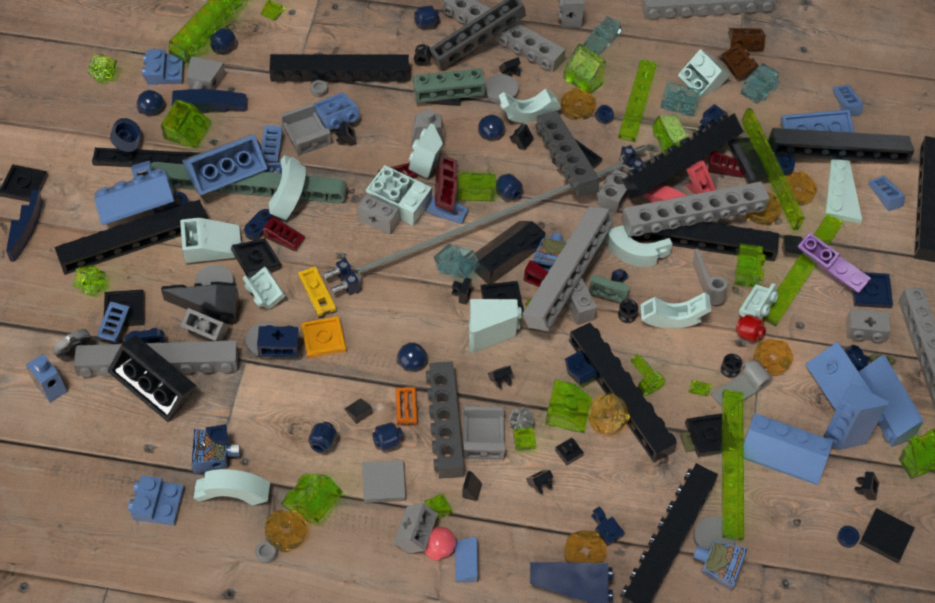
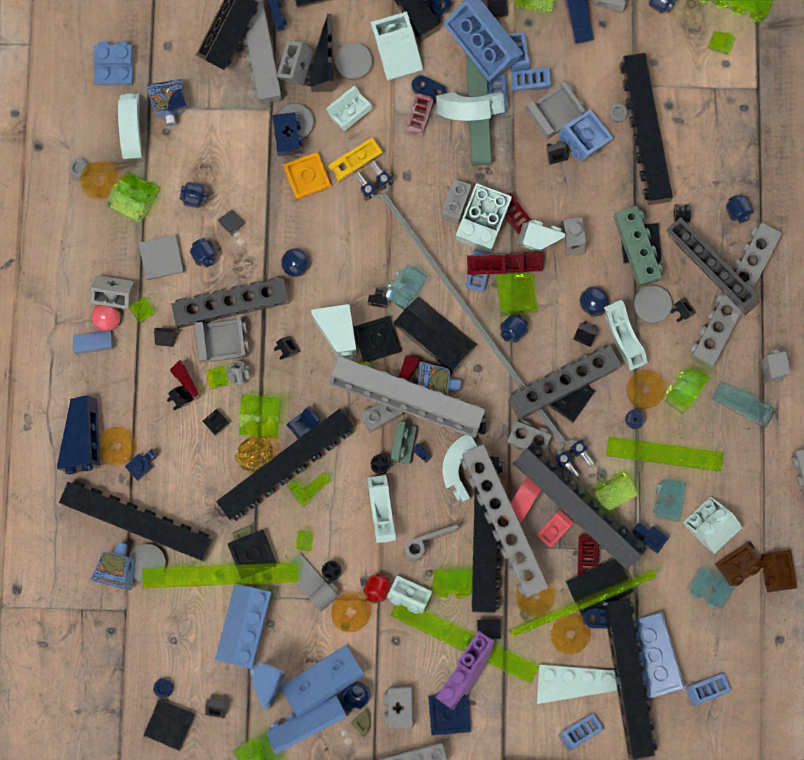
camera: 85 degrees right, 25 degrees up
(255, 255) = (385, 93): black tile -> none
(406, 420) = (244, 265): orange tile -> none
(518, 472) = (181, 374): none -> dark red slope

